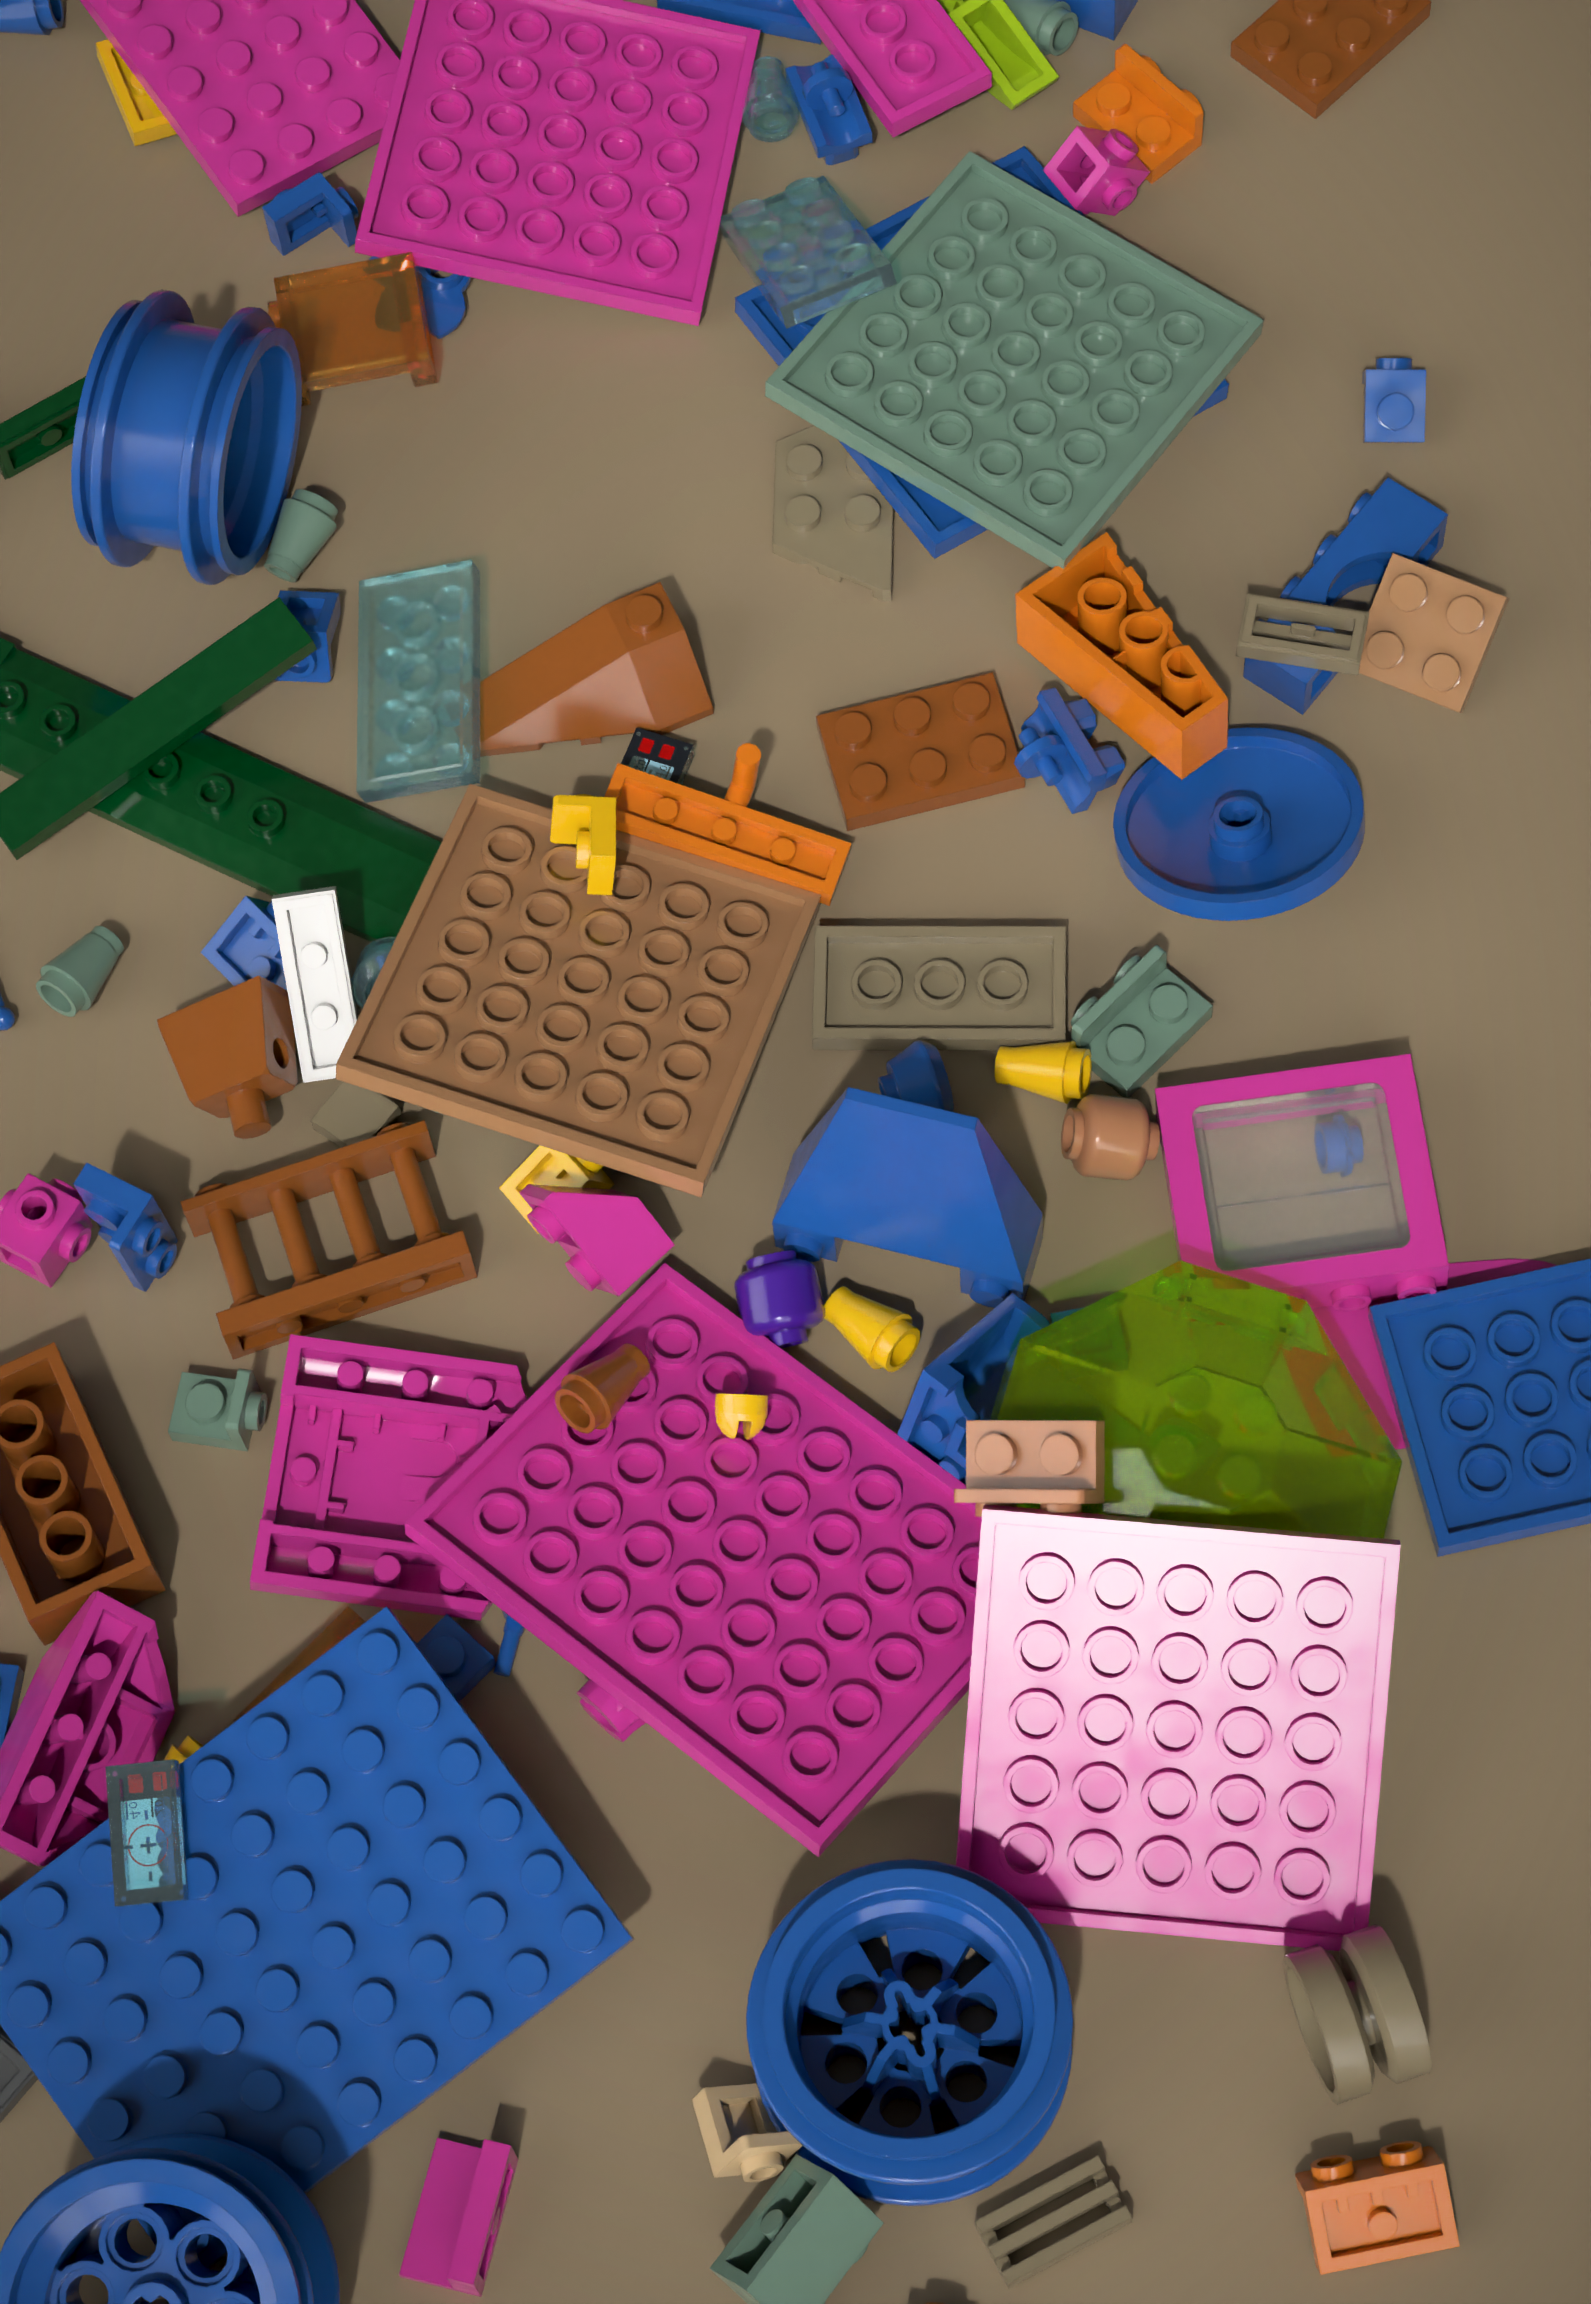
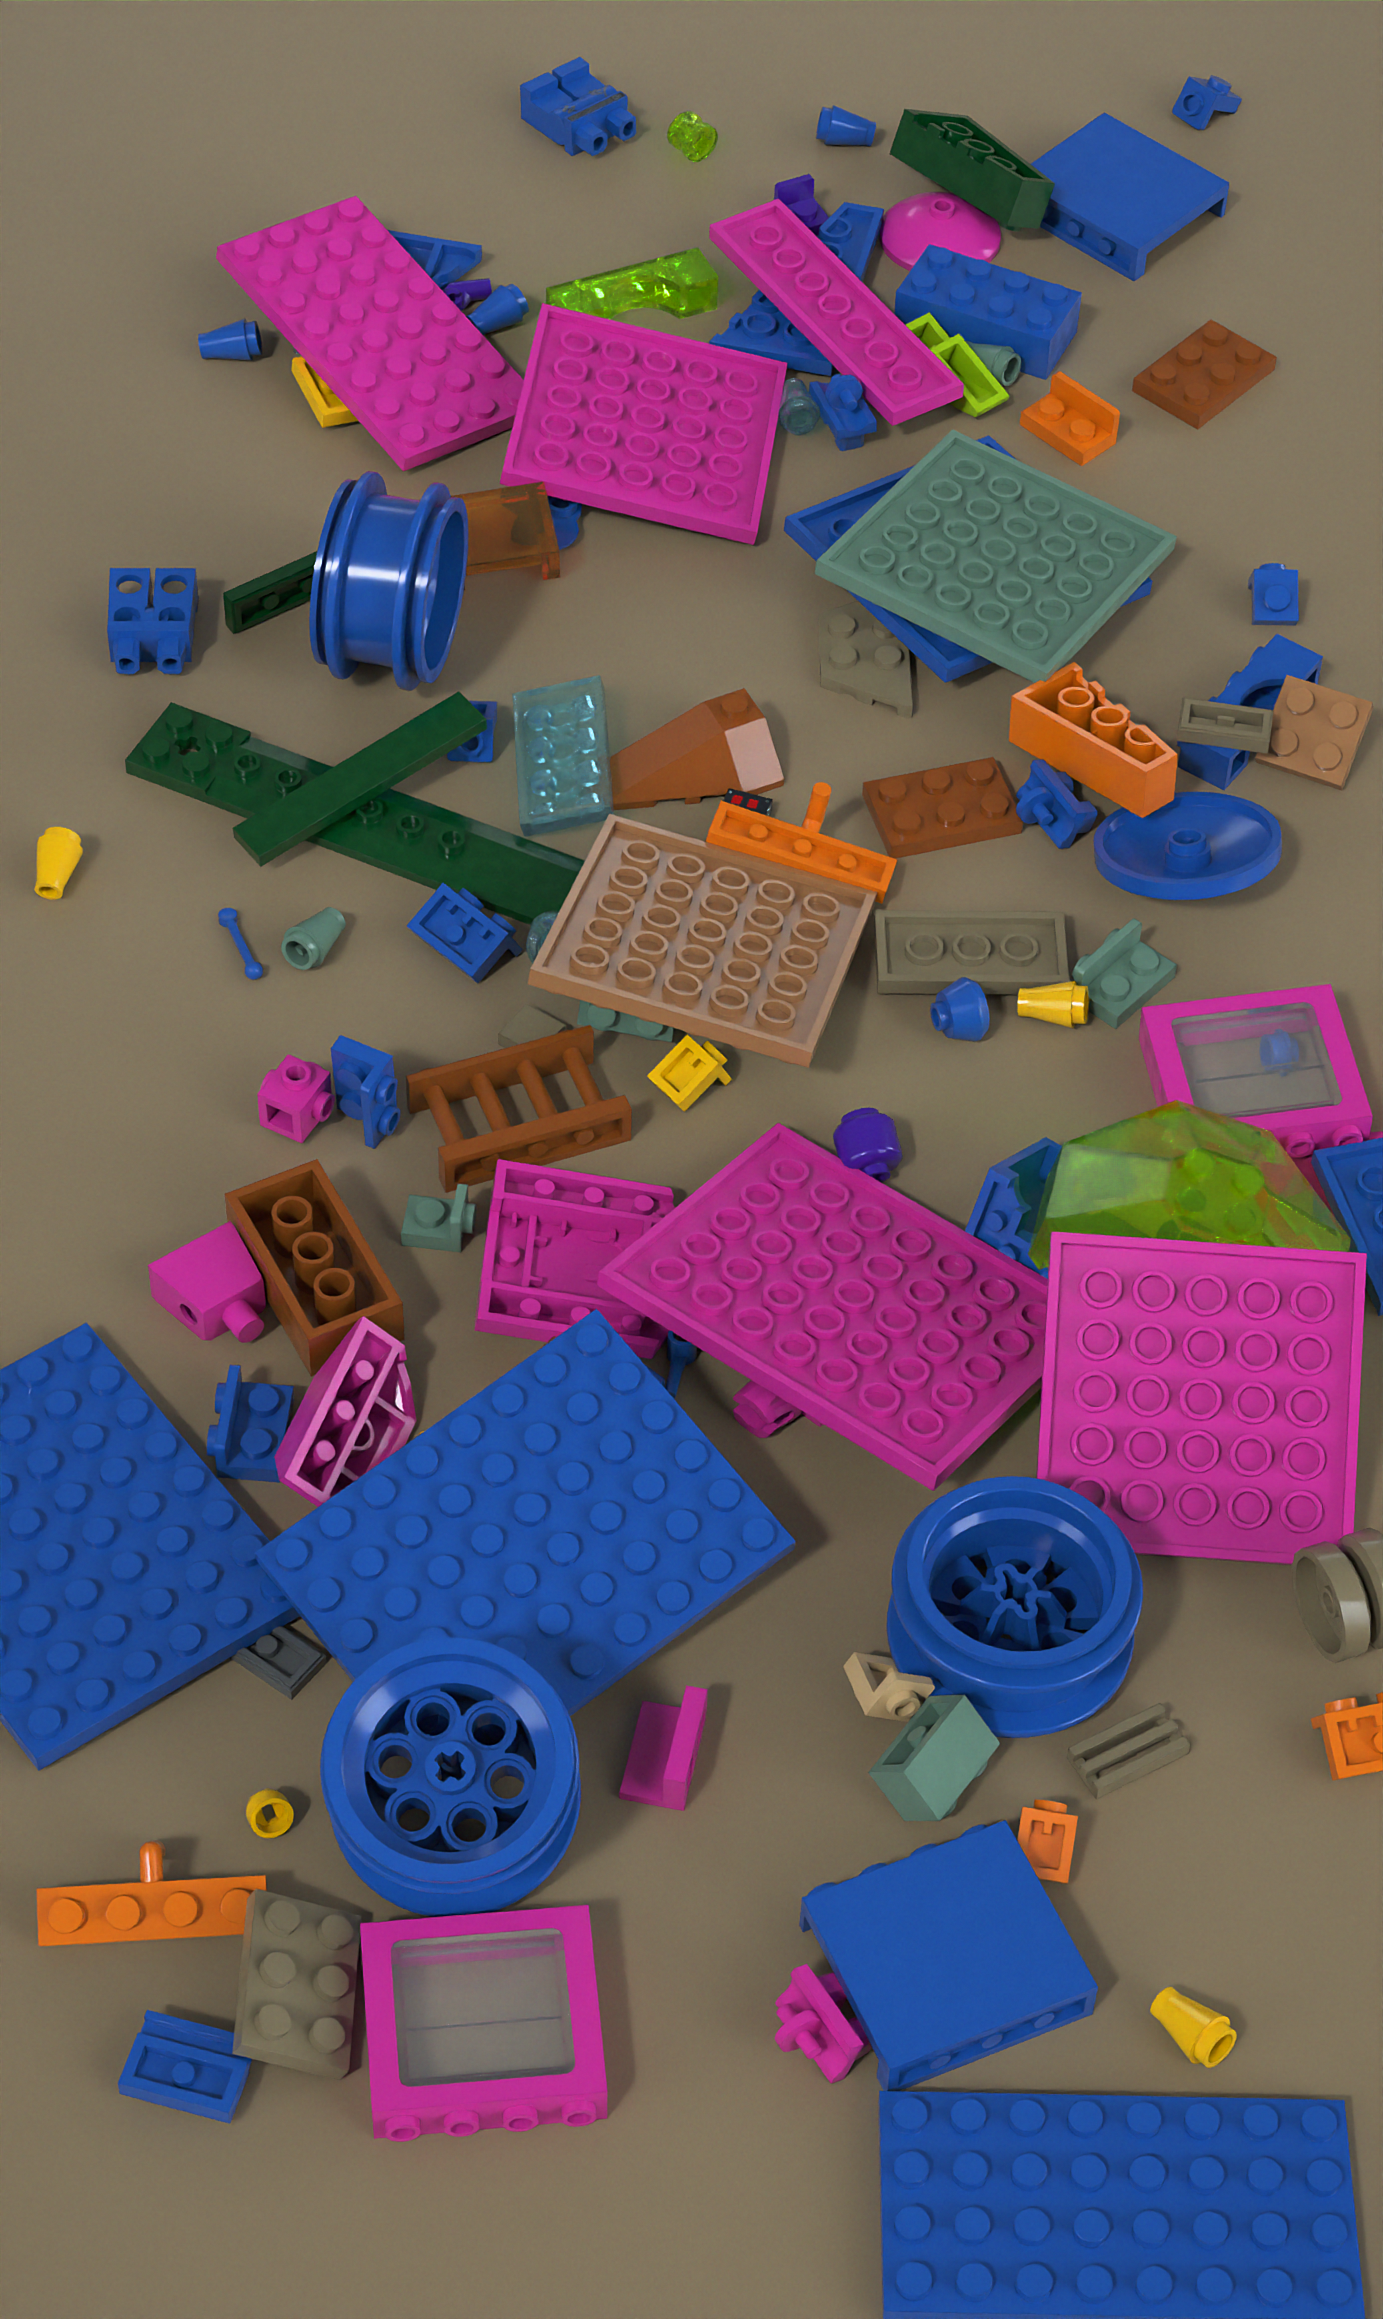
camera: 10 degrees left, 15 degrees down
(146, 1833) = (417, 1464): clear light blue tile -> none
(235, 1052) = (440, 983): dark orange torso -> none
(300, 533) = (465, 663): sand green cone -> none
(309, 210) = (461, 465): blue bracket -> none
(316, 977) = (503, 936): white tile -> none
(591, 826) = (707, 837): yellow bracket -> none
(600, 1389) = (740, 1189): dark orange cone -> none
(602, 1231) = (728, 1095): dark pink slope -> none
(741, 1407) = (848, 1205): yellow hinge -> none
(806, 250) = (836, 487): clear light blue plate -> none
(874, 1330) = (940, 1167): yellow cone -> none
(911, 1186) = (970, 1046): blue wedge -> none
(1034, 1463) = (1083, 1207): nougat bracket -> none
(1097, 170) = (1045, 446): dark pink brick -> none
(1109, 1137) = (1107, 1044): nougat head -> none

